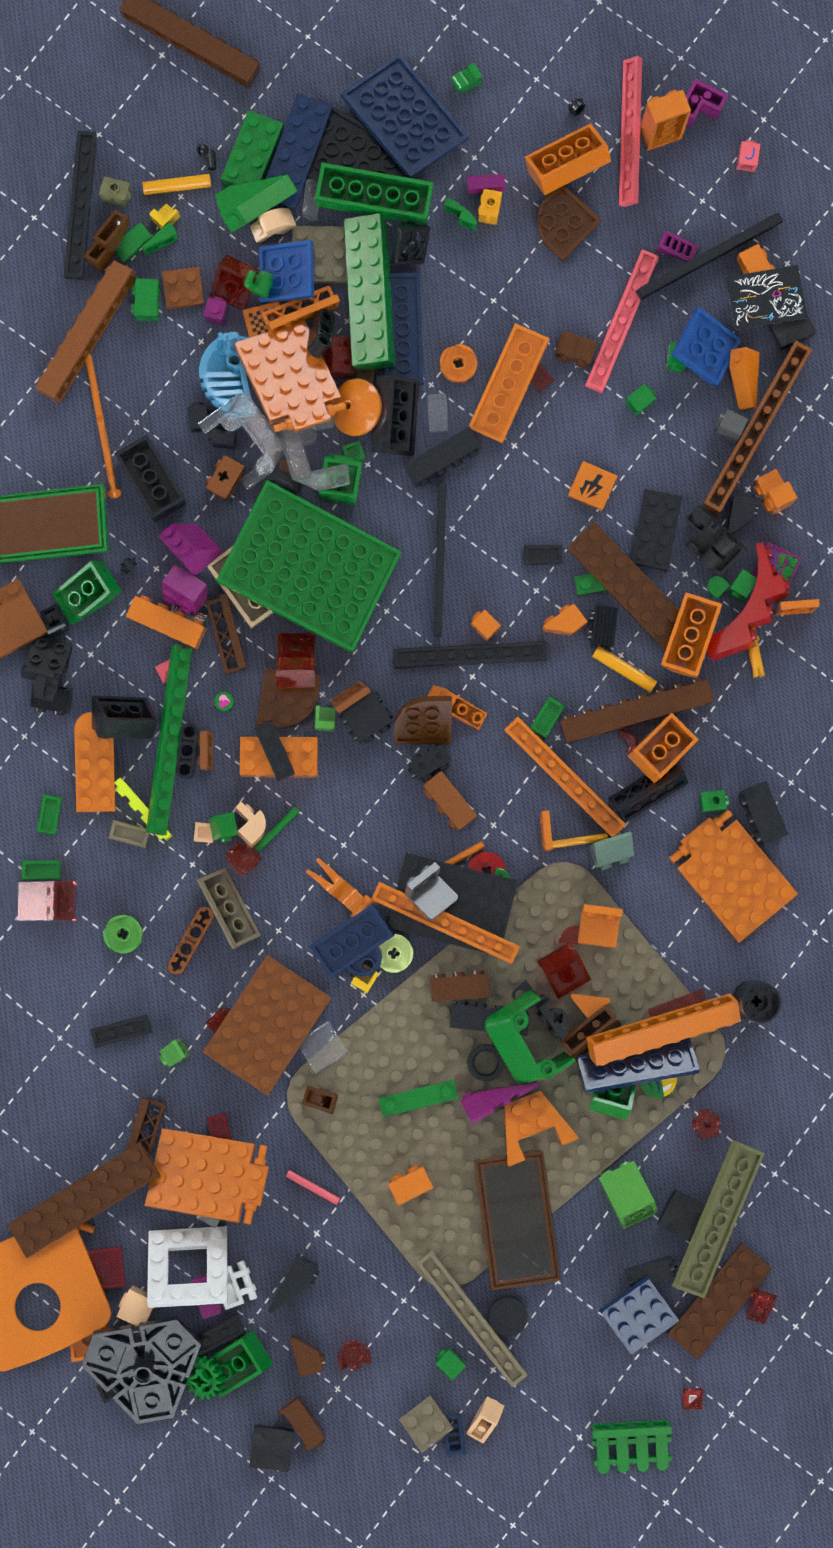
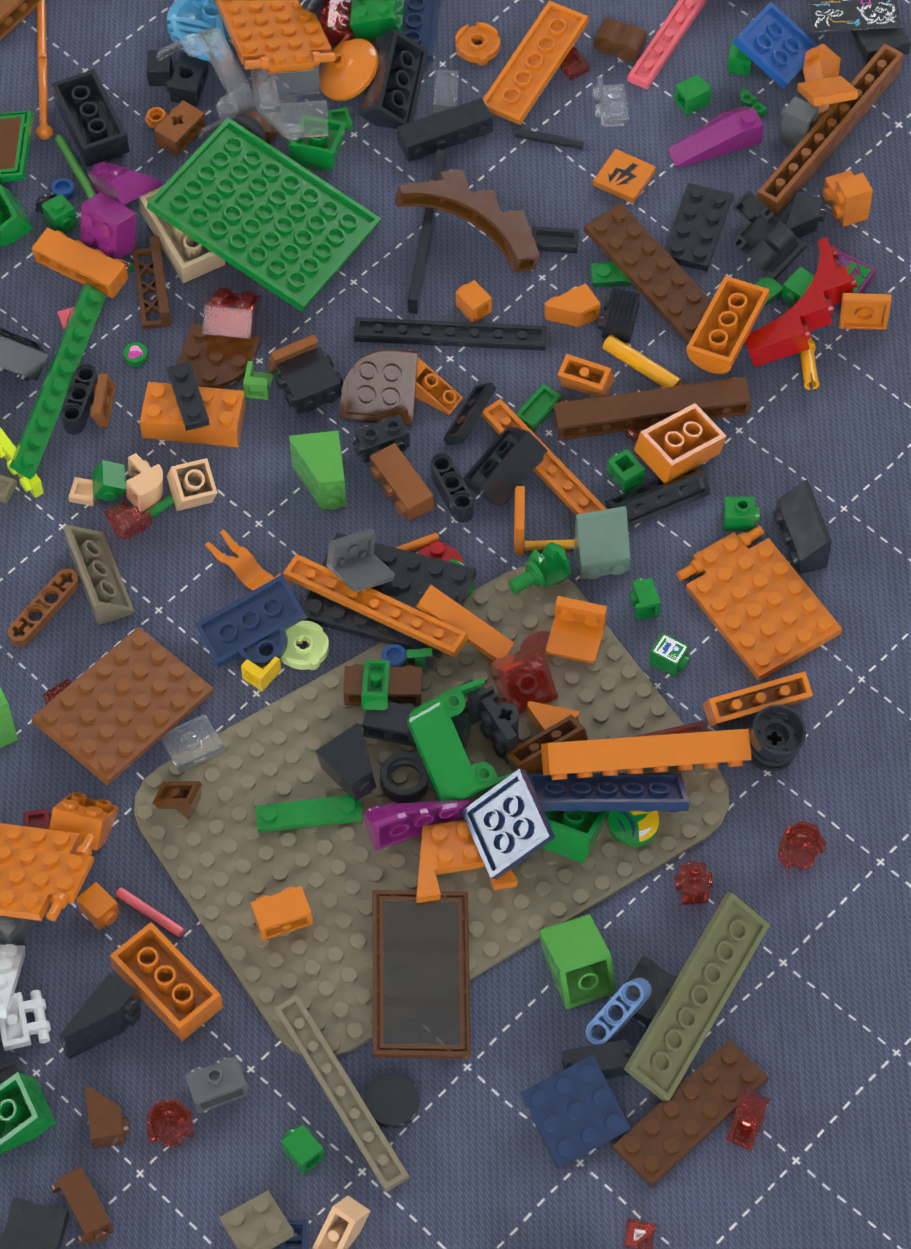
camera: 10 degrees right, 25 degrees down
(139, 547) = (63, 186): none -> blue tile
(142, 577) = (59, 214): none -> green brick
(169, 560) = (75, 166): none -> bright green piece
(204, 462) = (155, 116): none -> orange plate
(252, 1121) = (84, 816): none -> orange slope
(276, 1190) = (98, 906): none -> orange brick
(289, 826) = (191, 484): none -> light nougat head
(335, 1248) = (166, 981): none -> orange brick
(382, 1320) = (216, 1084): none -> dark grey brick
(388, 800) = (320, 467): none -> bright green slope
(444, 1058) = (348, 762): none -> black slope
(455, 993) = (375, 685): none -> green slope
(459, 531) = (480, 208): none -> reddish brown arch
(464, 958) = (395, 654): none -> blue tile
(484, 961) = (420, 658): none -> green tile
(489, 792) = (452, 478): none -> black beam
(495, 731) = (469, 414): none -> black tile
(515, 931) = (480, 634): none -> orange tile
(527, 454) = (549, 138): none -> black bar
(528, 780) = (505, 465): none -> black slope
(568, 873) = (543, 569): none -> green piece
(569, 1106) = (508, 824): none -> plate
(575, 414) = (611, 104): none -> clear bracket
(583, 691) = (585, 376): none -> orange brick
(628, 771) = (625, 470): none -> green brick
(647, 884) = (644, 599): none -> green brick
(663, 1239) = (629, 1005): none -> medium blue beam
(667, 435) = (719, 136): none -> magenta wedge
(671, 933) = (669, 655): none -> green brick
(687, 398) = (750, 101): none -> green piece
(740, 967) = (753, 699): none -> orange brick
(753, 399) = (827, 91): none -> orange tile
(780, 1085) = (801, 845): none -> clear red hair

